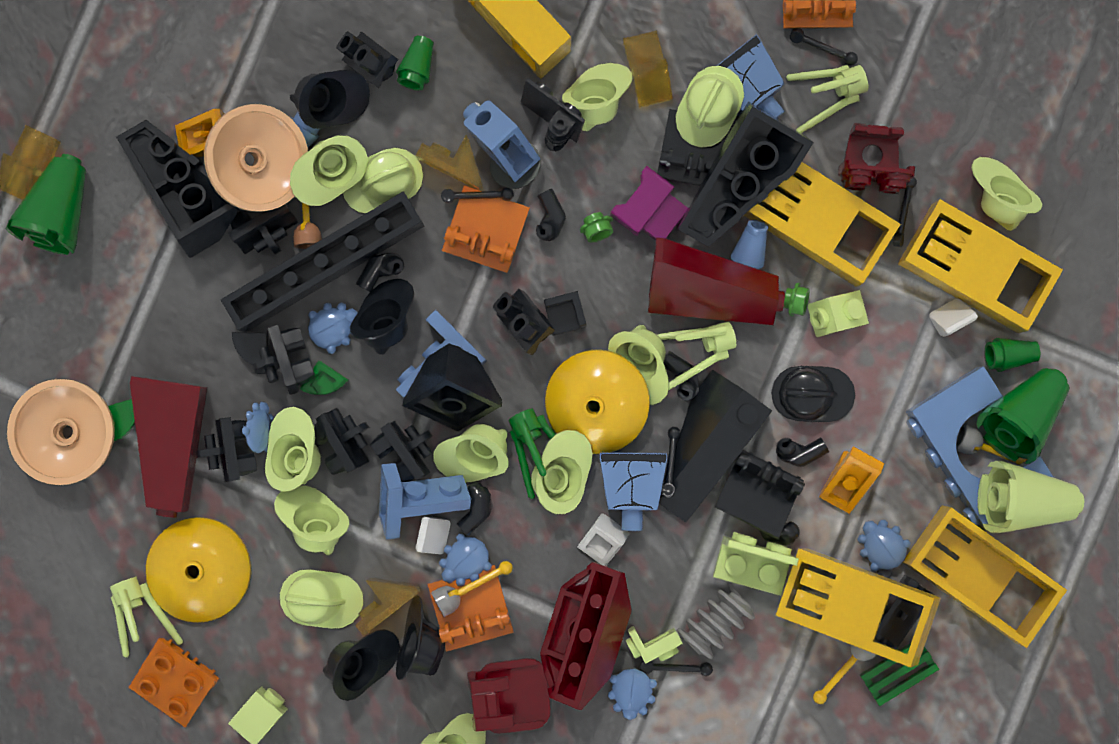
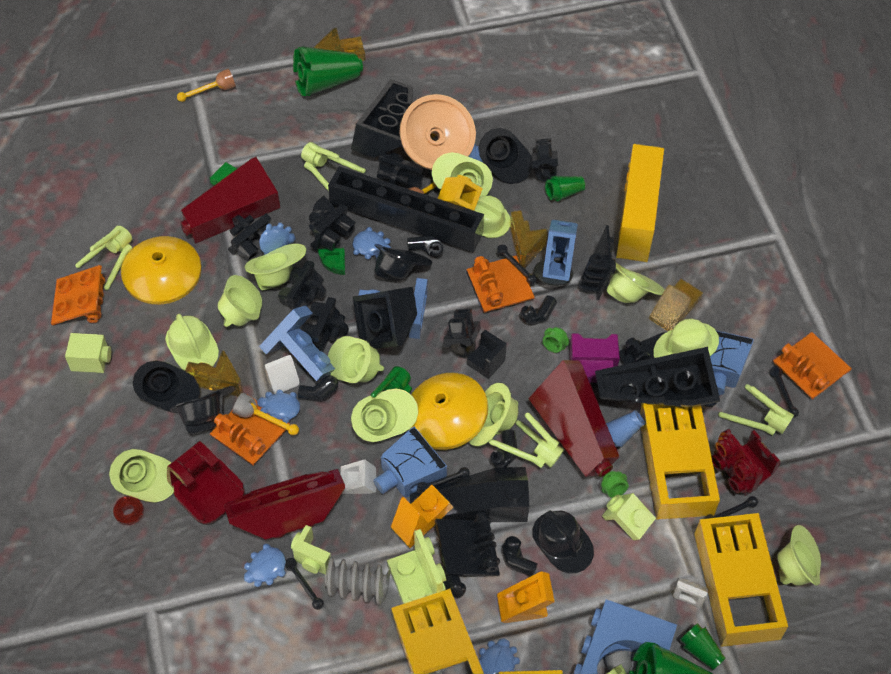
camera: 45 degrees right, 30 degrees down
(38, 427) = (194, 145): light nougat dish -> none
(171, 301) = (317, 156): none -> yellowish green plant
(355, 195) = (460, 191): none -> yellow brick
(694, 511) = (419, 514): none -> light orange slope

